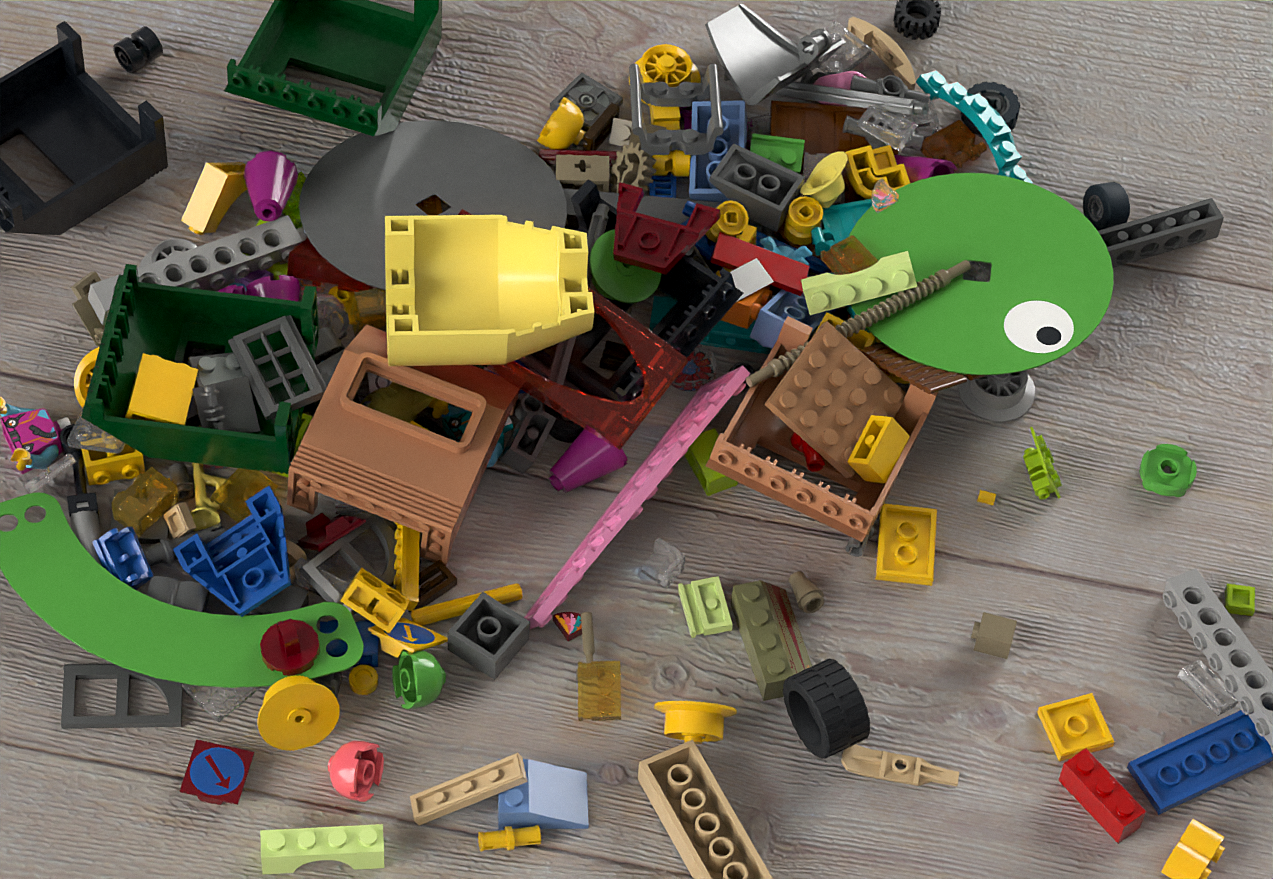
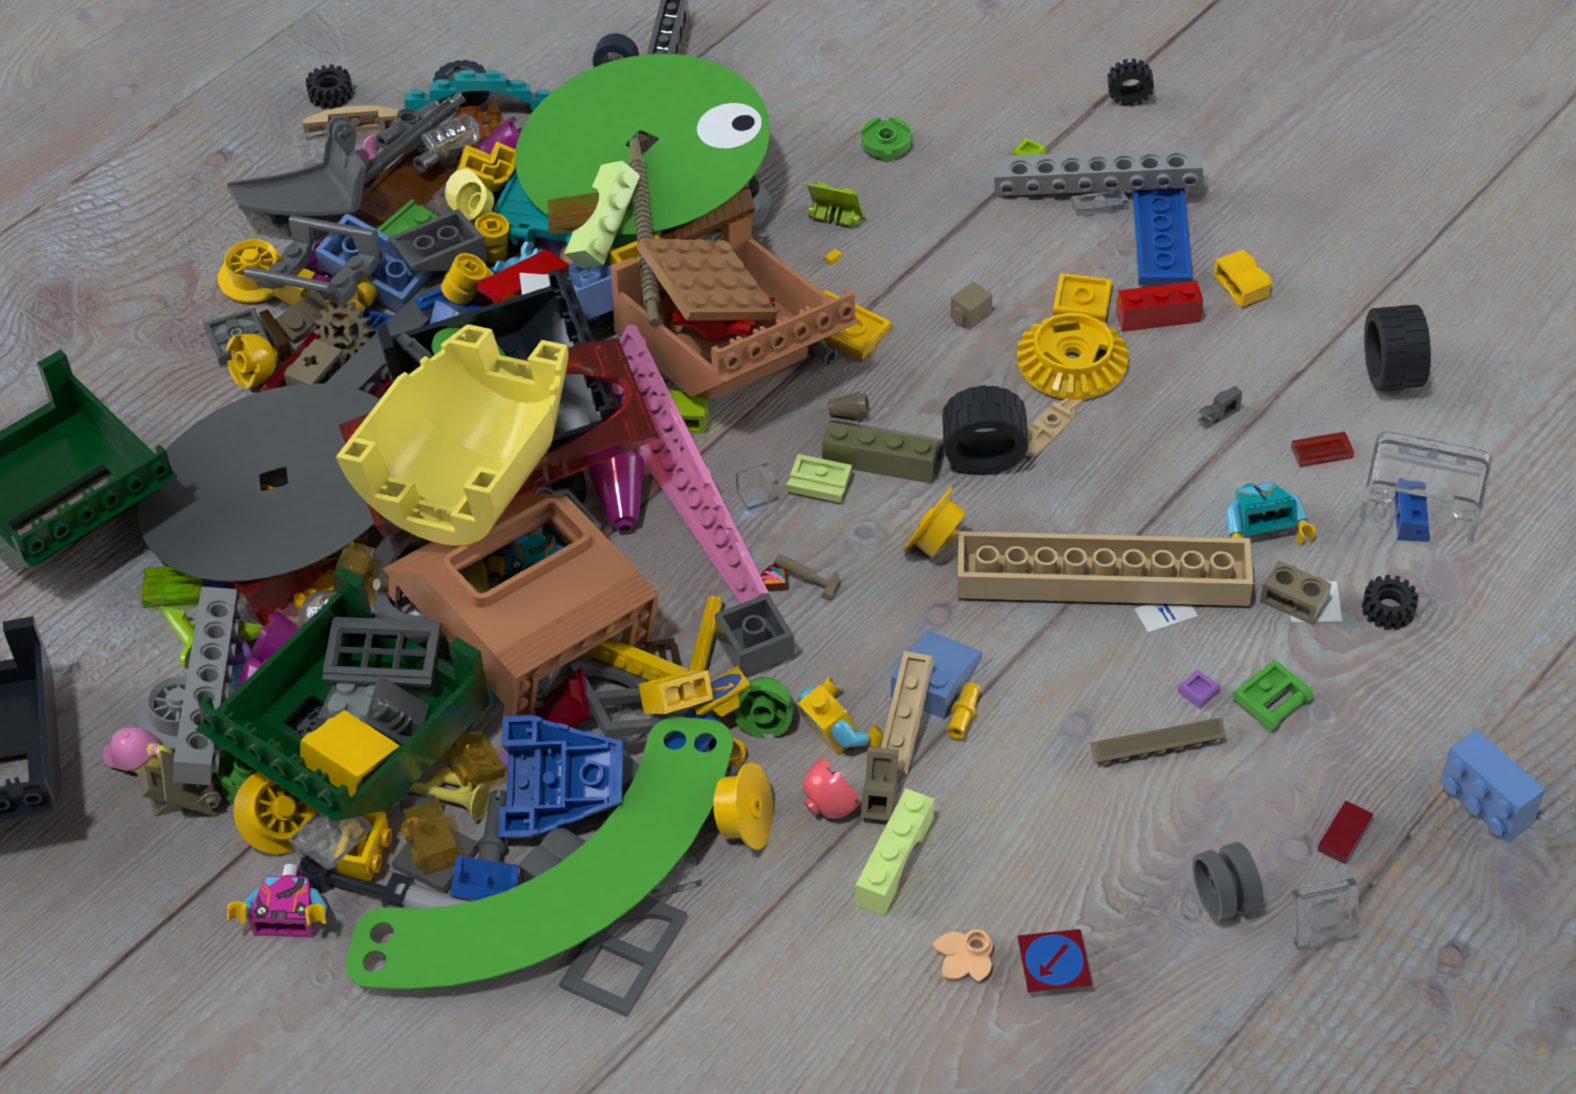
camera: 55 degrees left, 5 degrees down
(51, 472) = (346, 901): clear tile -> none
(118, 254) = (133, 749): none -> bright pink hair
(179, 520) = (470, 819): tan tile -> none
(213, 195) = (125, 642): yellow arch -> none
(216, 772) = (762, 902): piece -> none
(270, 183) = (157, 585): magenta cone -> none
(290, 647) = (683, 776): dark red tile -> none
(384, 806) = (880, 783): none -> dark tan brick
(432, 732) = (832, 721): none -> torso
(599, 690) = (857, 584): clear yellow plate -> none
(654, 241) = (475, 306): dark red wing -> none
(878, 449) = (770, 277): yellow brick -> none
(883, 196) = (517, 168): clear tile -> none
(968, 766) = (1049, 370): none -> yellow gear

